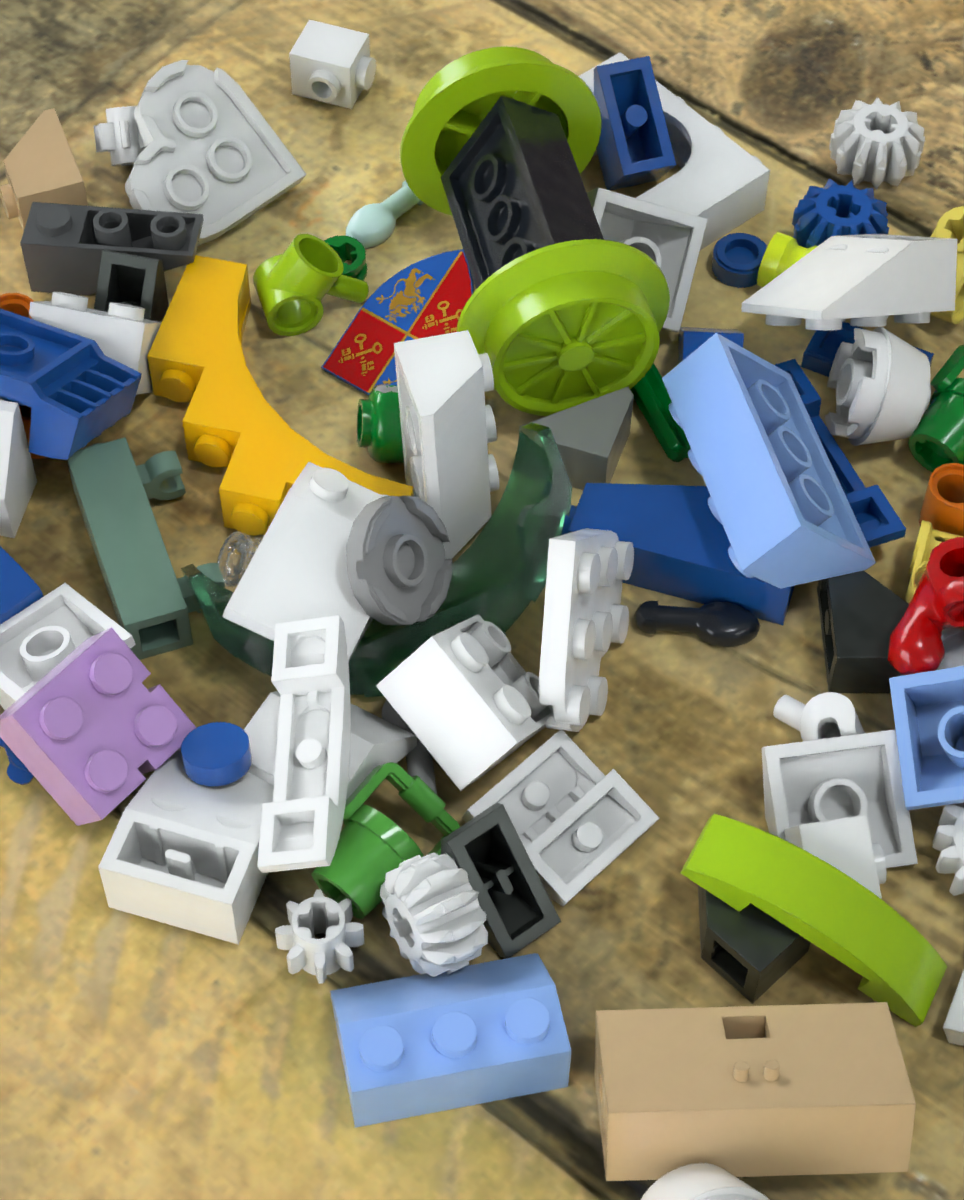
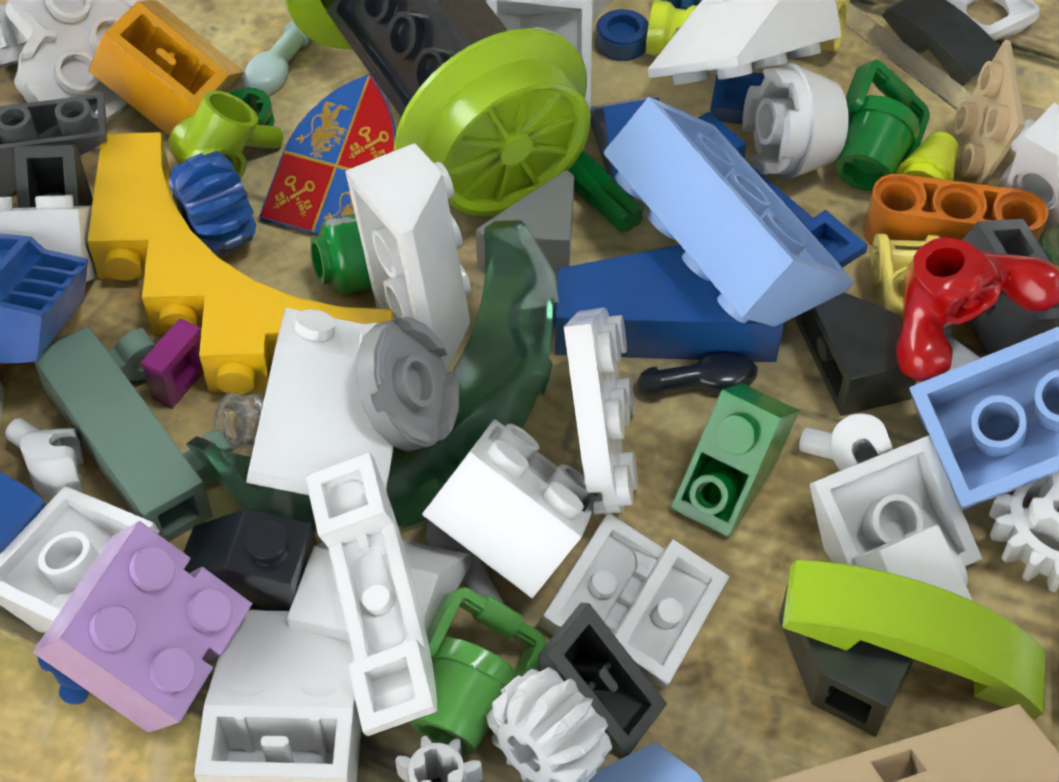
camera: 15 degrees left, 0 degrees up
(58, 551) = (49, 456): none -> white piece
(194, 491) = (174, 363): none -> magenta tile
(213, 683) = (254, 555): none -> black slope
(216, 754) = (278, 623): blue tile -> none
(269, 195) = (160, 64): none -> light orange slope
(276, 344) = (213, 201): none -> blue gear
(702, 705) = (734, 457): none -> green slope

